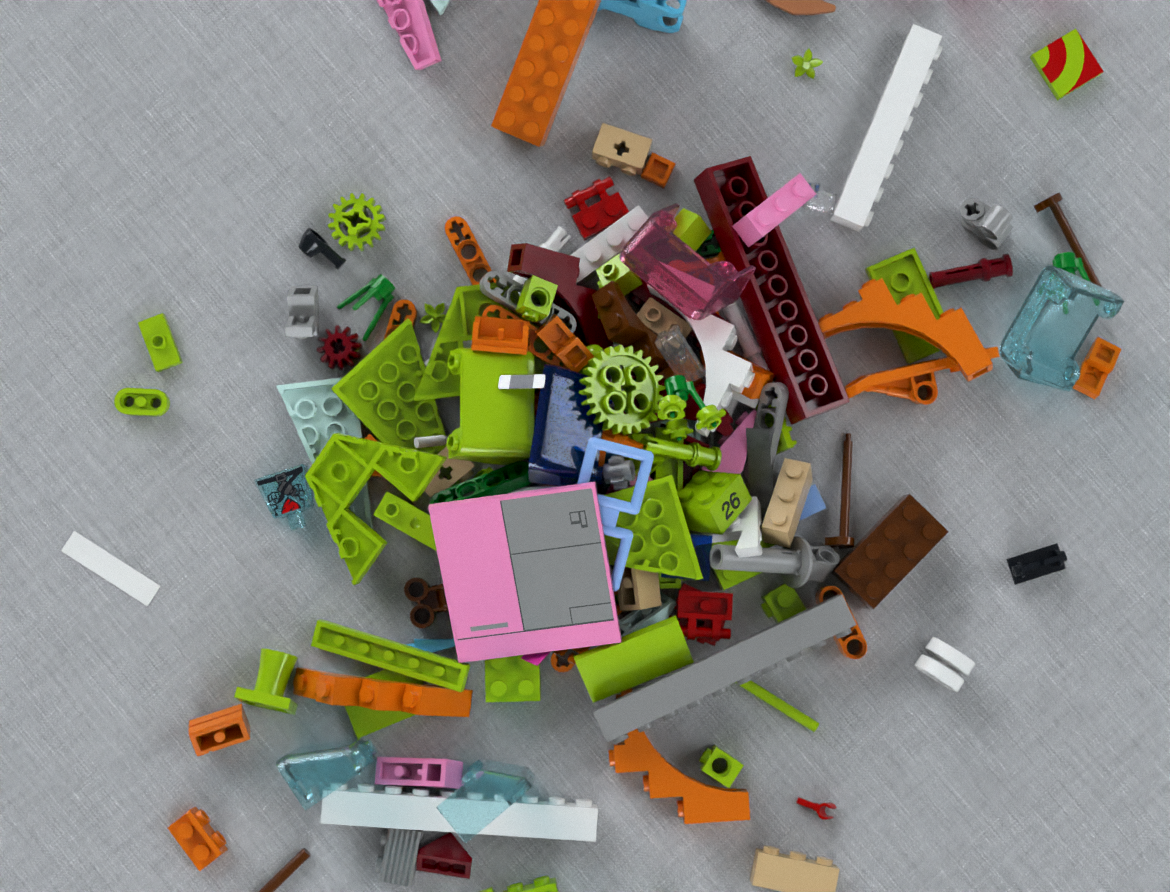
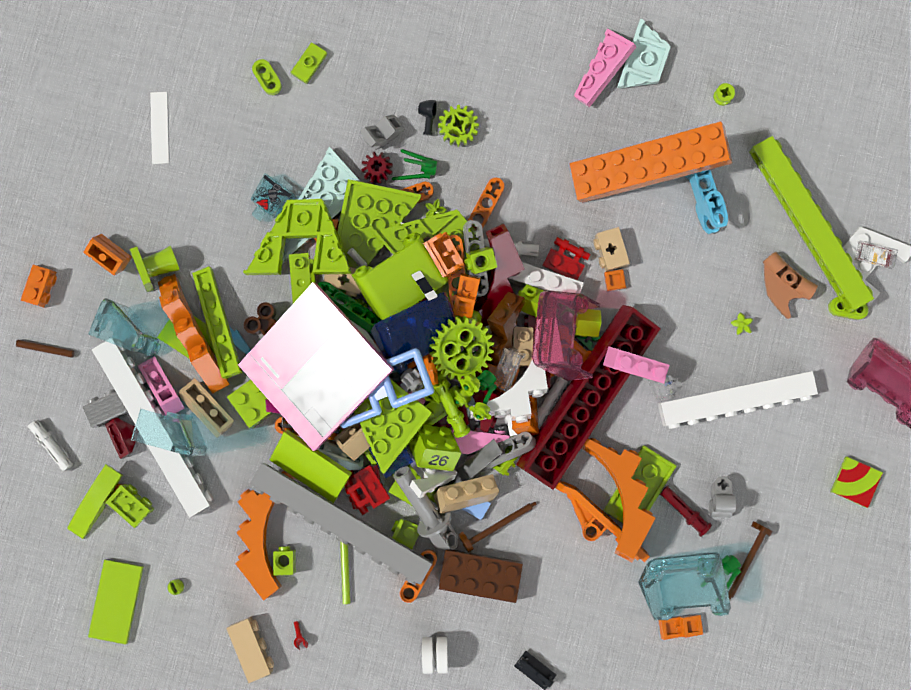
camera: 60 degrees right, 0 degrees up
(481, 736) = (205, 408): none -> tan brick

